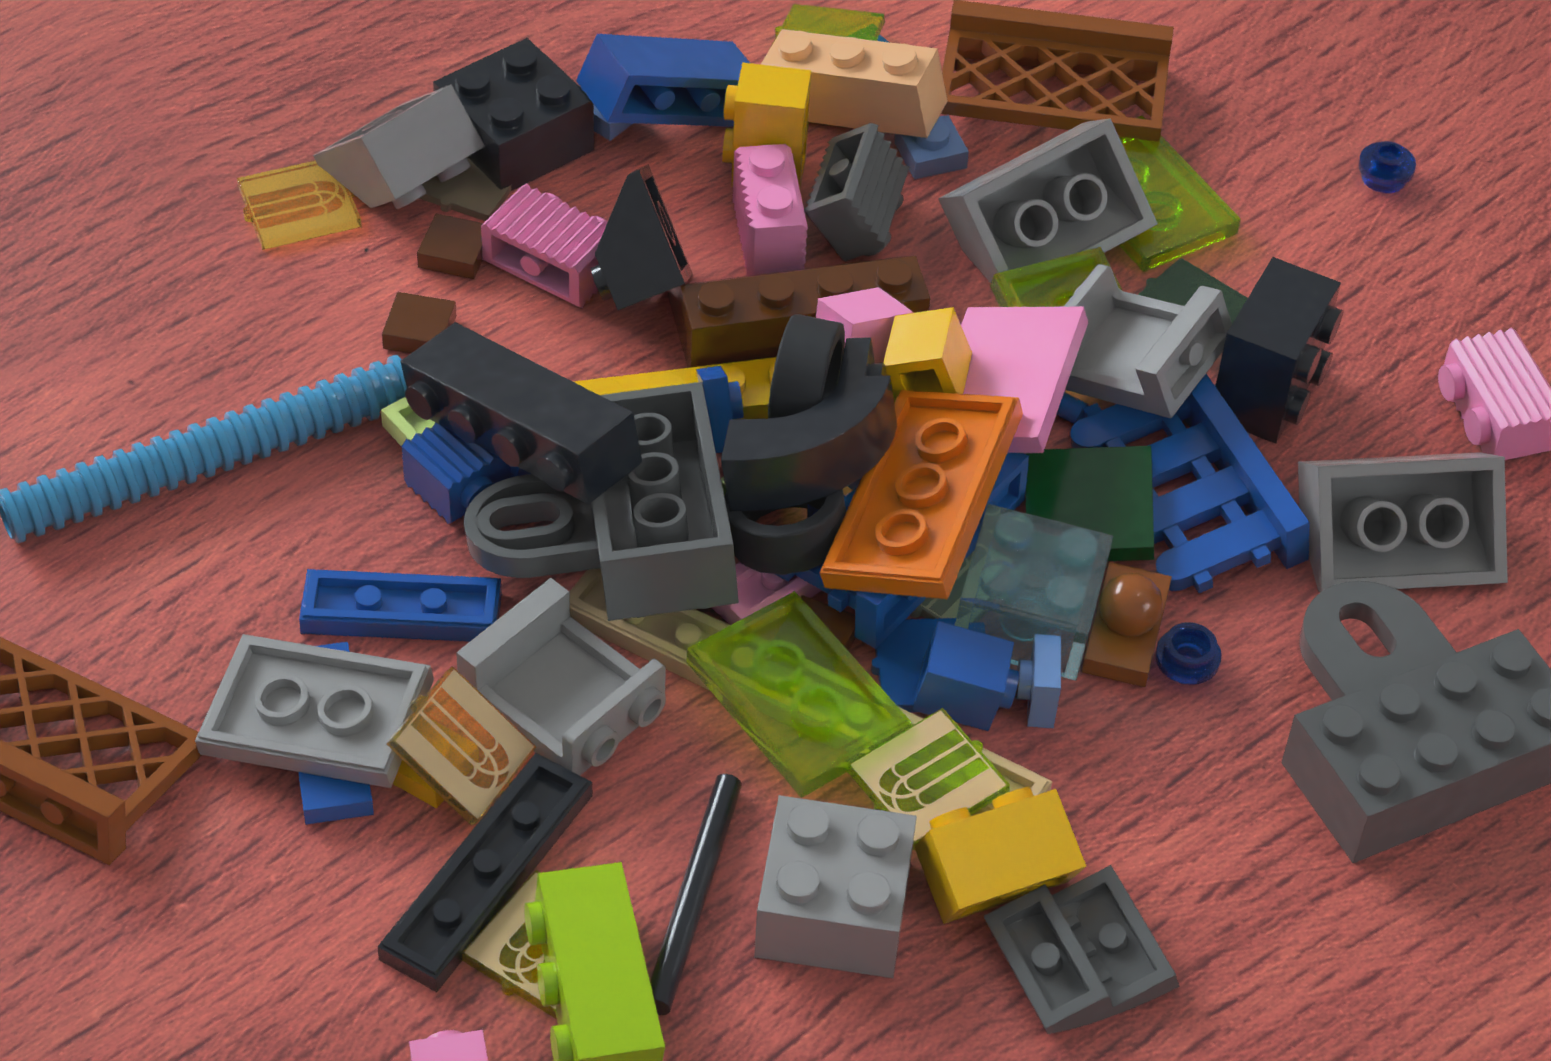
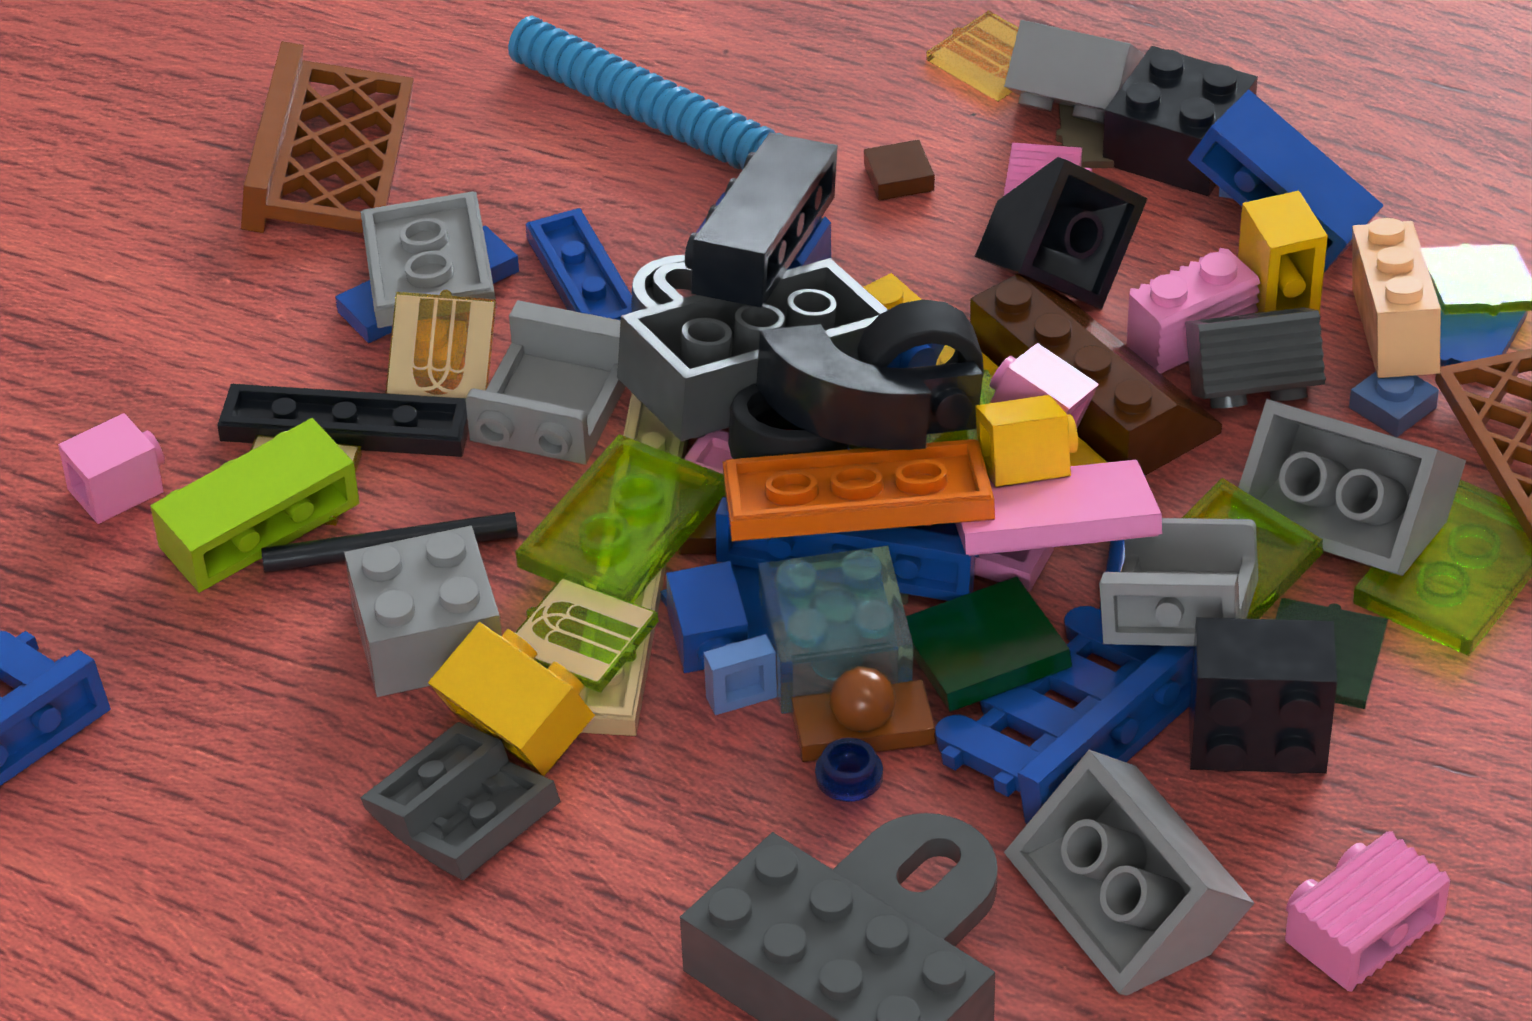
camera: 70 degrees right, 5 degrees down
(452, 246) = (994, 150): reddish brown tile -> none

